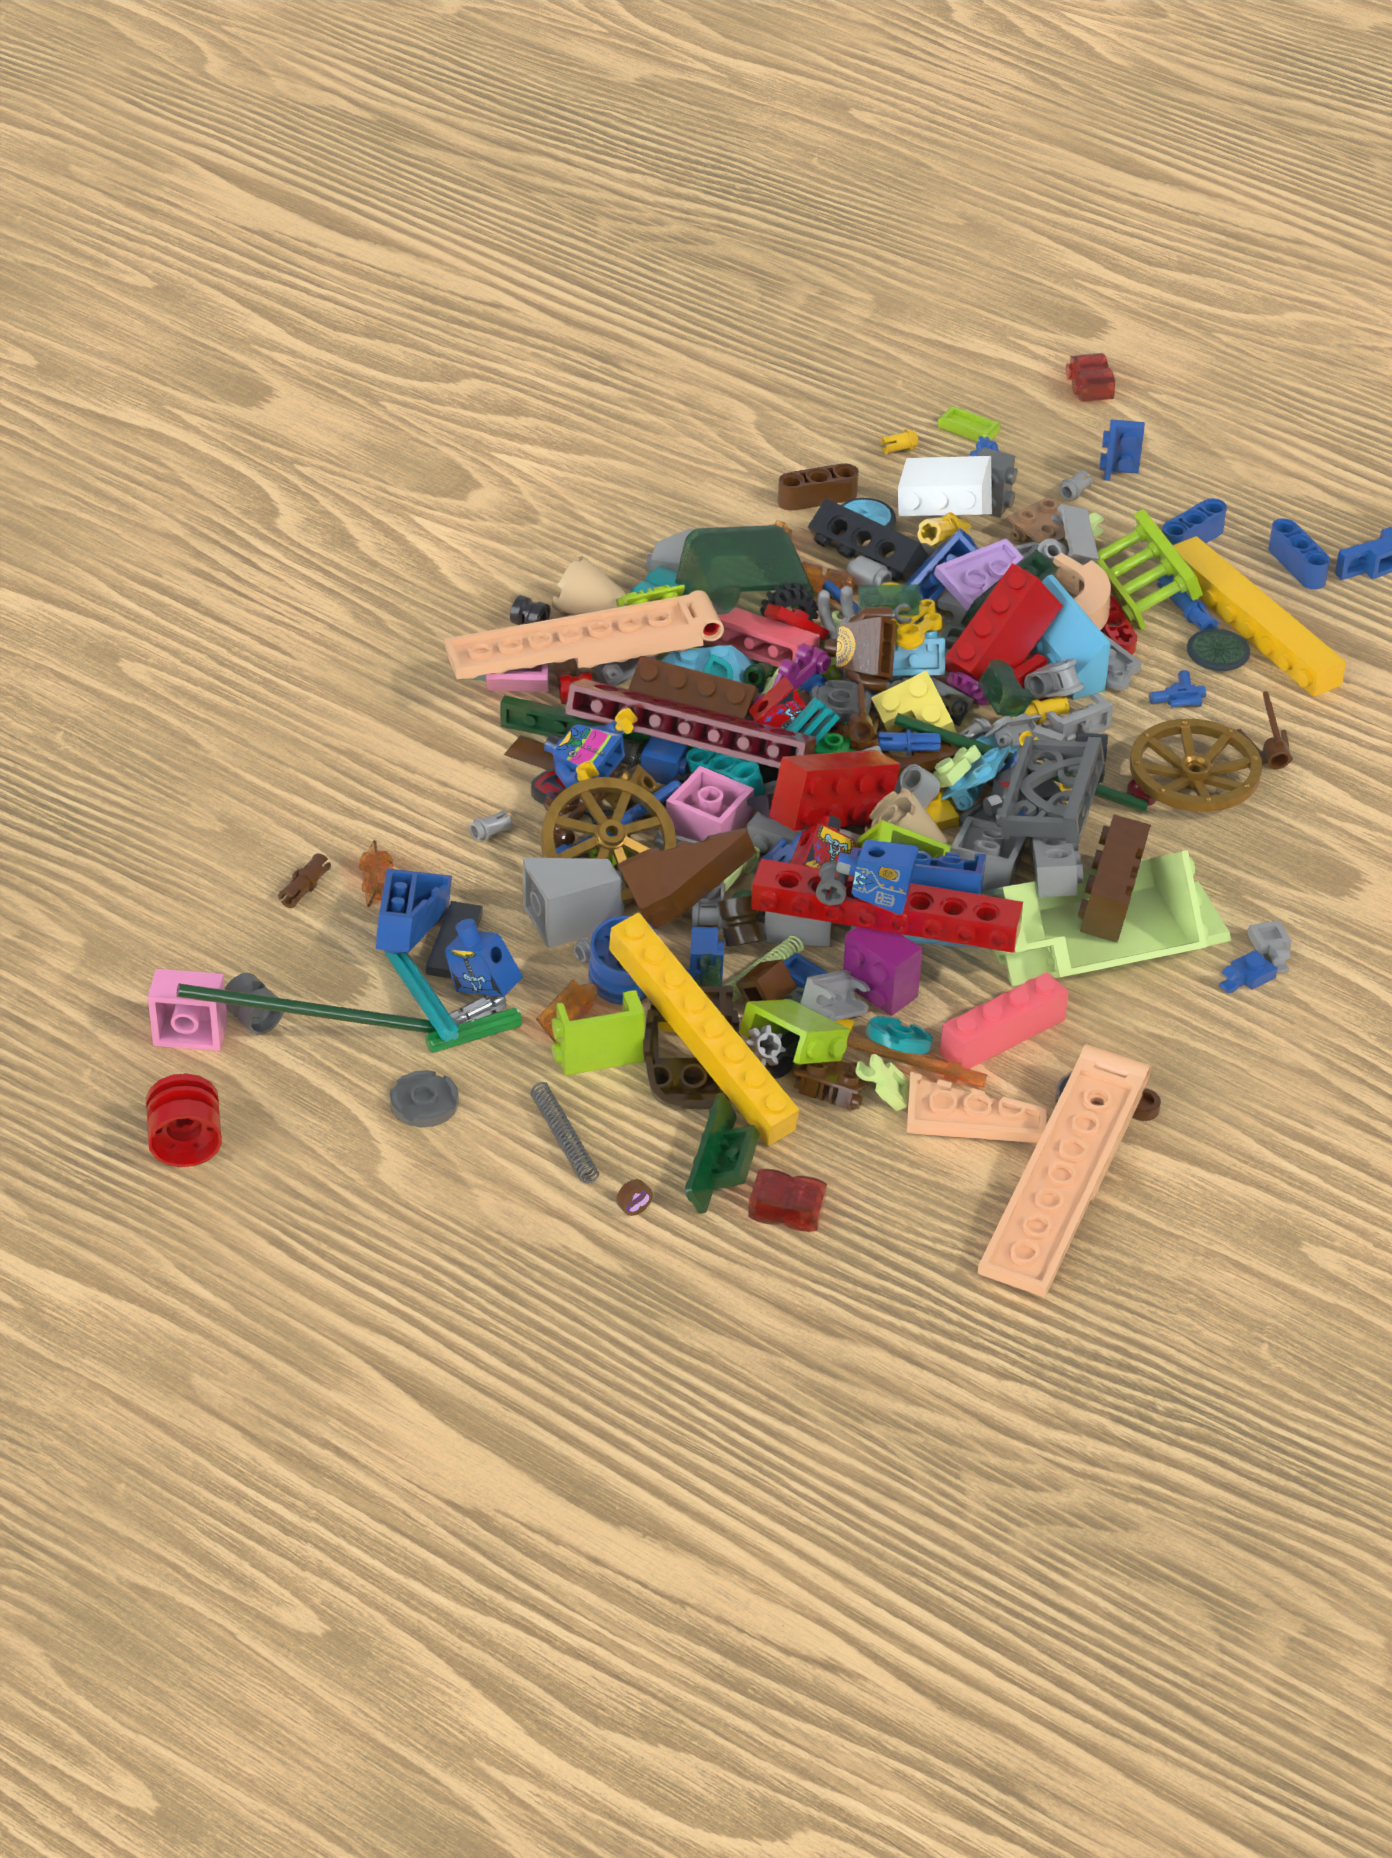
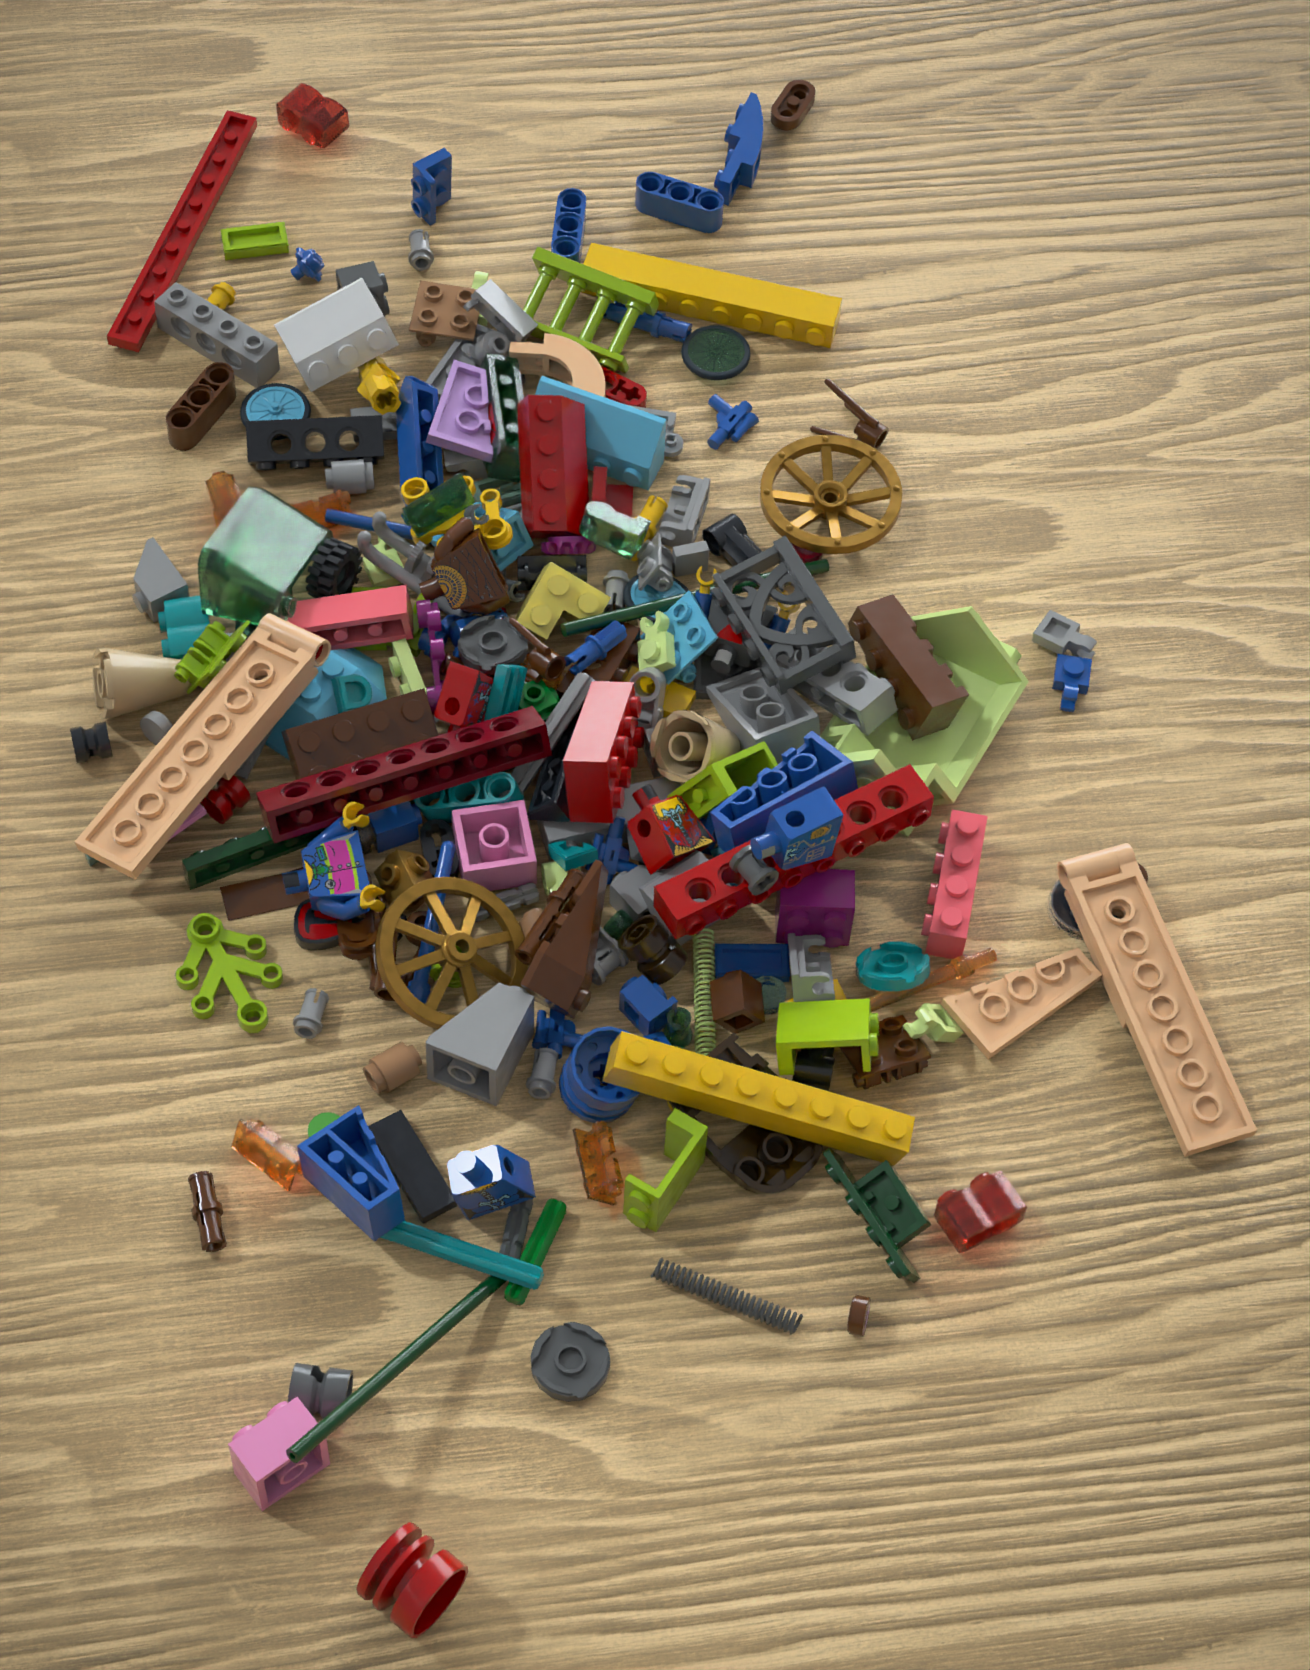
camera: 45 degrees left, 15 degrees up
(477, 749) = (227, 968): none -> lime plant
(502, 881) = (392, 1067): none -> medium nougat brick
(760, 677) = (382, 667): dark green pin -> none
(761, 844) = (572, 856): none -> teal tile
(768, 1040) = (821, 1071): light grey gear -> none
(795, 618) = (360, 581): red plate -> none
(874, 454) = (217, 335): none -> light grey brick
(925, 393) = (182, 230): none -> red plate
(1054, 680) = (635, 485): light grey piece -> none

